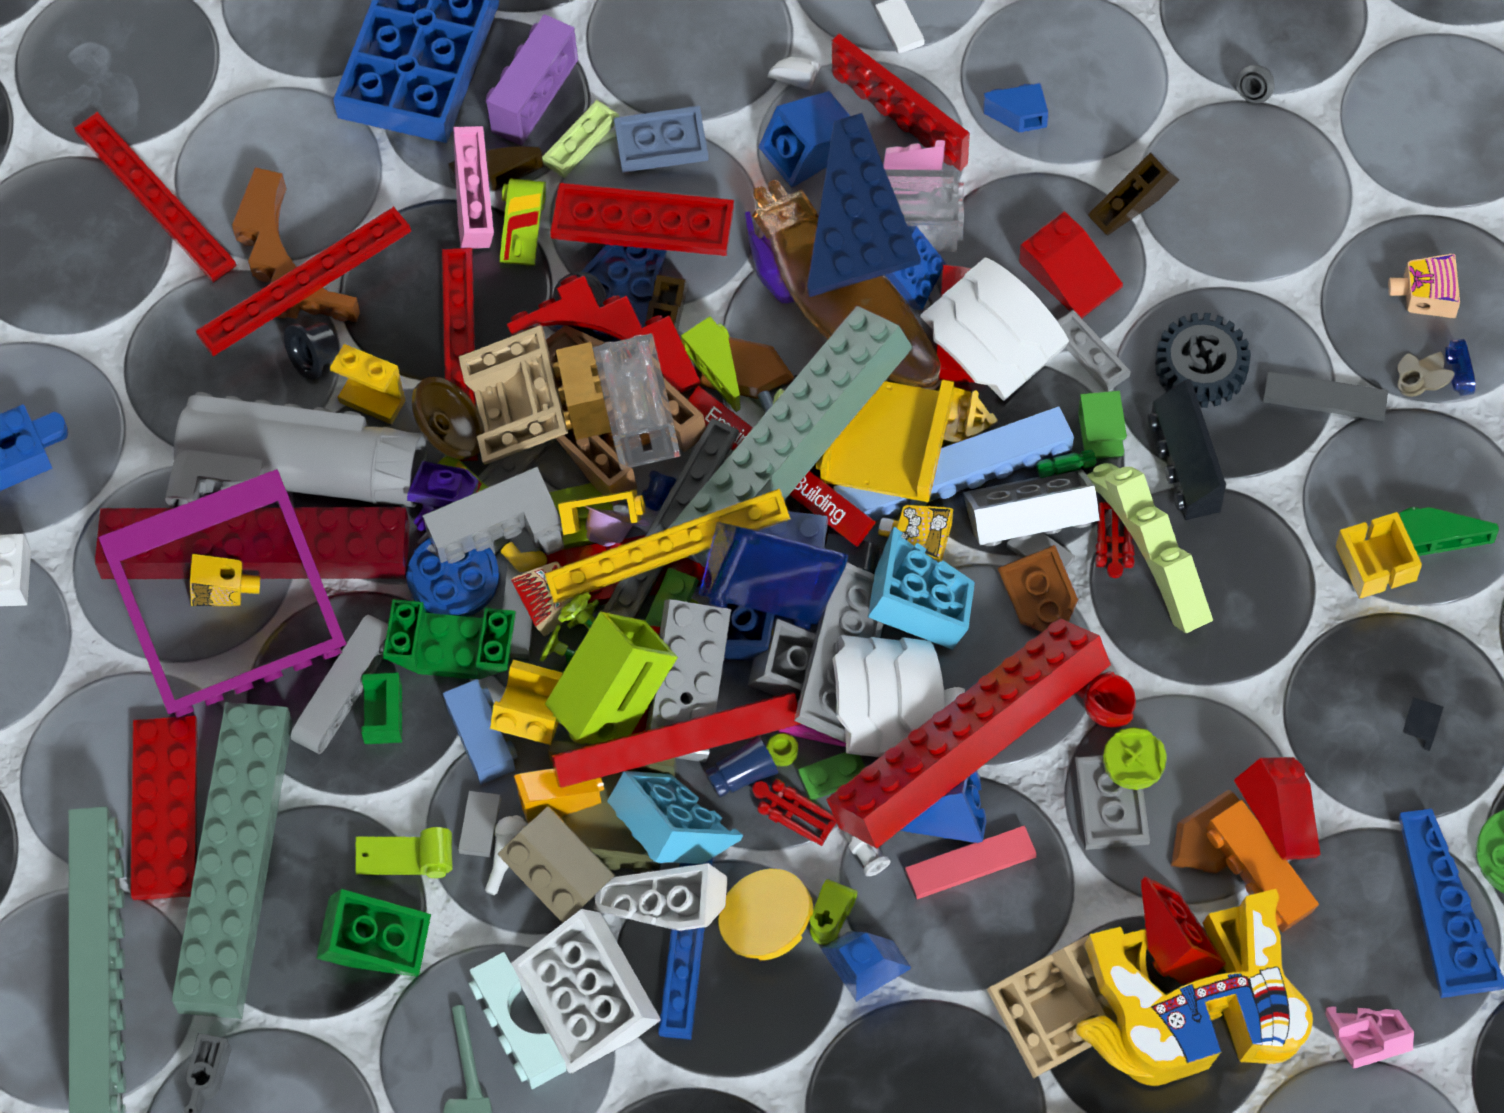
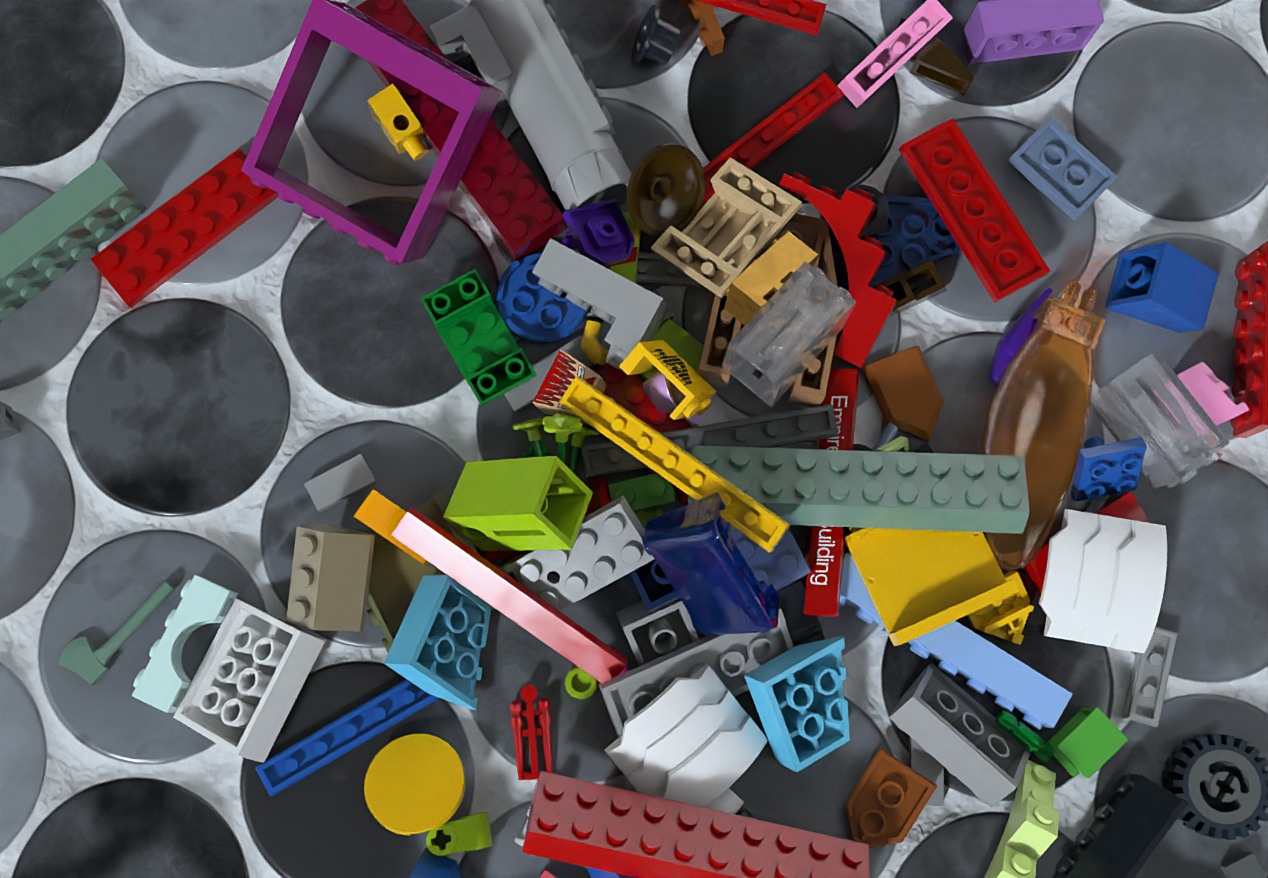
camera: 45 degrees right, 15 degrees up
(232, 861) = (167, 315): sand green brick -> none
(341, 686) = (379, 284): light grey beam -> none
(371, 385) = (652, 103): yellow panel -> none
(373, 934) = (181, 472): green slope -> none
(382, 708) = (384, 332): green panel -> none
(406, 855) = (270, 443): lime door -> none
(472, 717) = (417, 423): medium blue brick -> none
(505, 831) = (340, 515): white piece -> none
(522, 220) = (900, 113): lime door -> none
(523, 705) = (461, 441): yellow panel -> none
(580, 139) = (1011, 104): yellowish green tile -> none
(658, 490) = (736, 407): clear blue brick -> none
(666, 898) = (370, 698): white wedge -> none
(711, 353) = (895, 356): lime slope -> none
(742, 768) = (535, 664): dark blue plant -> none
(795, 71) = (1214, 231): white brick -> none
(829, 774) = (585, 741): bright green plate -> none
(859, 216) = (1115, 393): dark blue wing -> none
(924, 526) = (865, 656): torso -> none
(1069, 265) = (1217, 600): red slope -> none
(1115, 568) = (957, 852): red piece -> none

